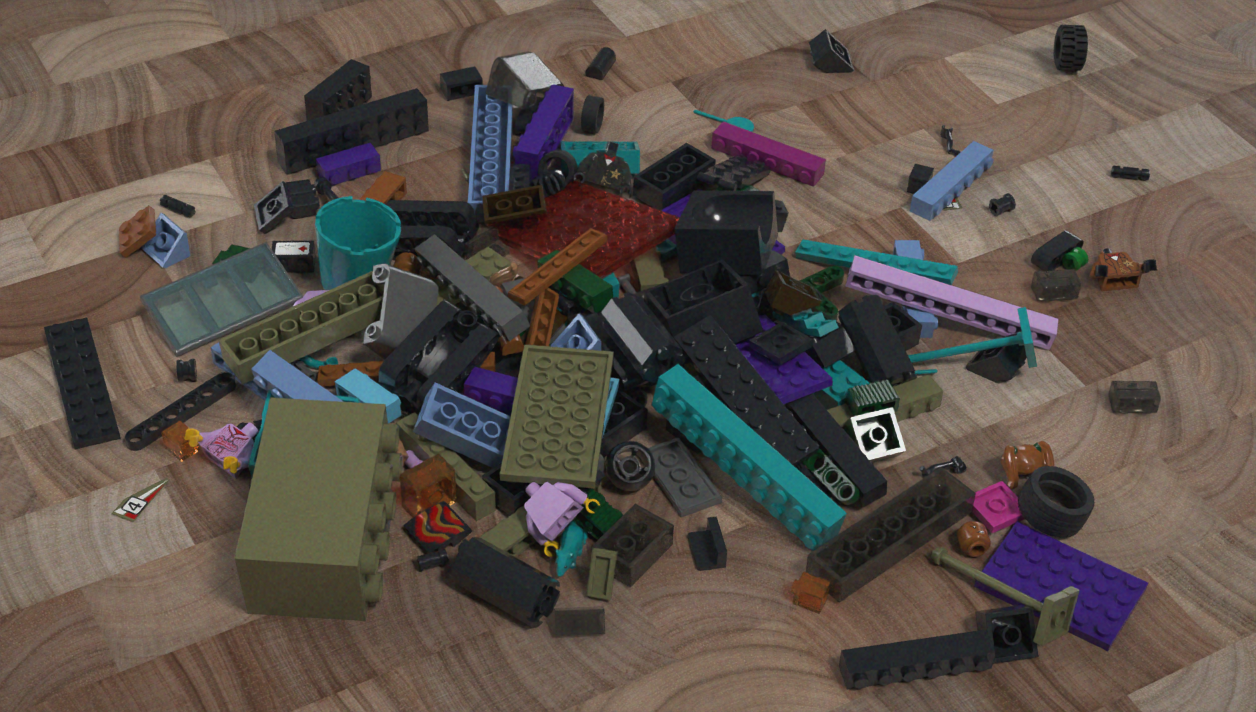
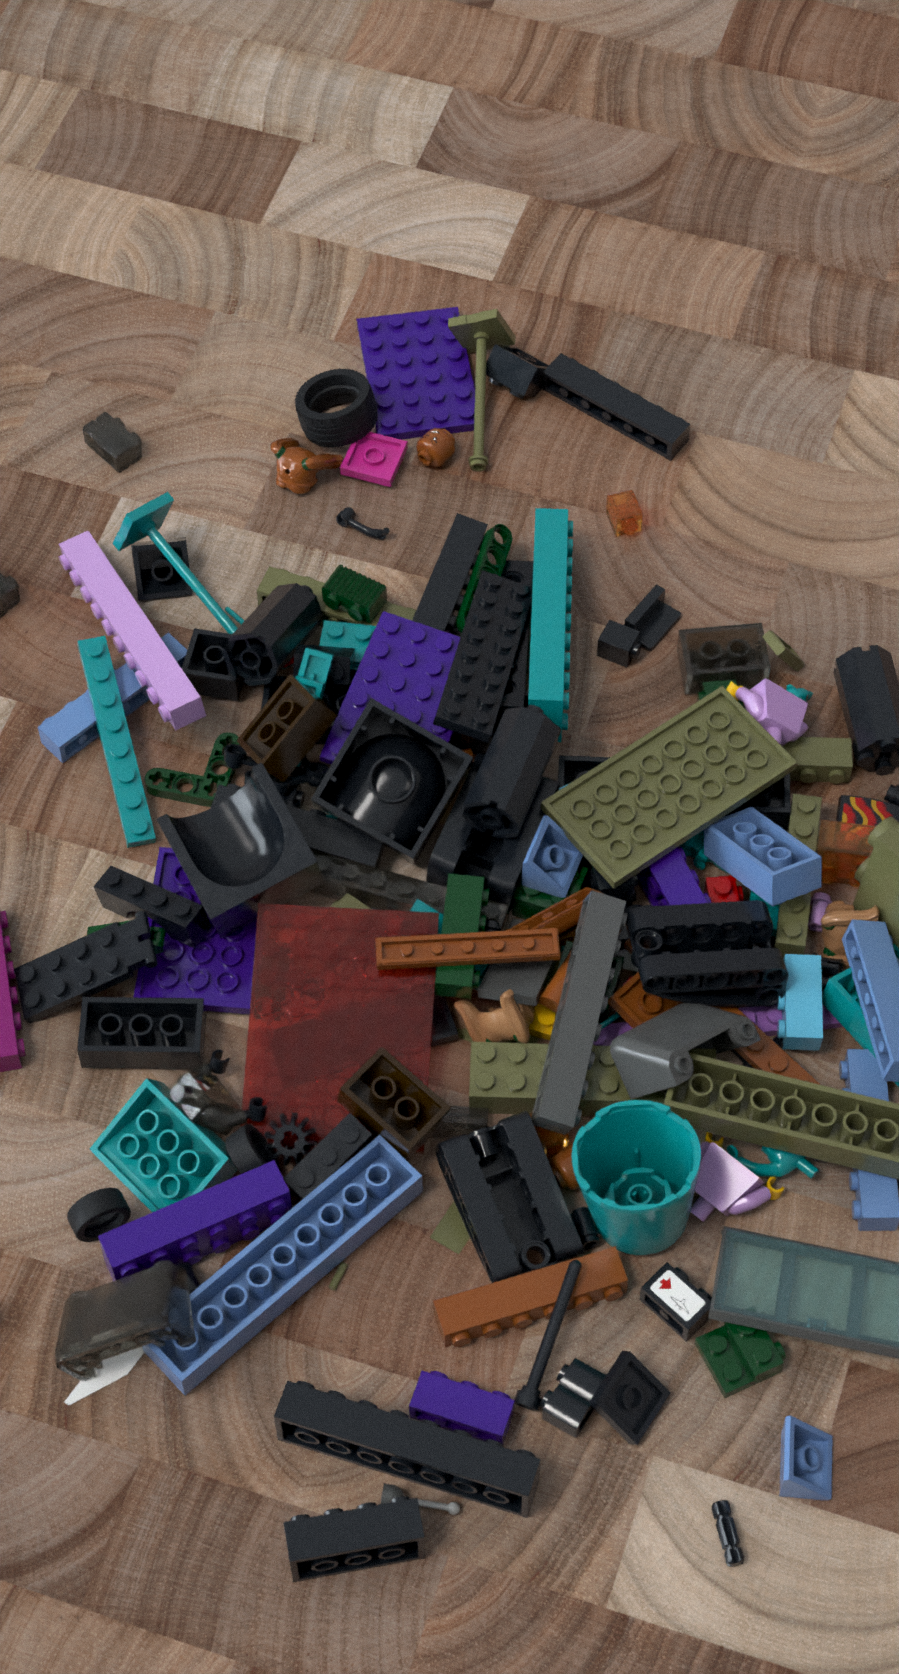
camera: 130 degrees left, 15 degrees up
(137, 231) = (825, 1505): dark orange plate -> none
(460, 83) = (165, 1441): black brick -> none
(579, 621) = (827, 643): clear smoke panel -> none
(621, 478) = (635, 717): black wheel -> none
(682, 478) = (594, 701): dark grey tile -> none
(703, 508) = (619, 643): none -> black brick
(781, 343) = (378, 677): black plate -> none
(876, 434) = (399, 570): brick -> none
(891, 533) = (494, 494): clear smoke brick -> none

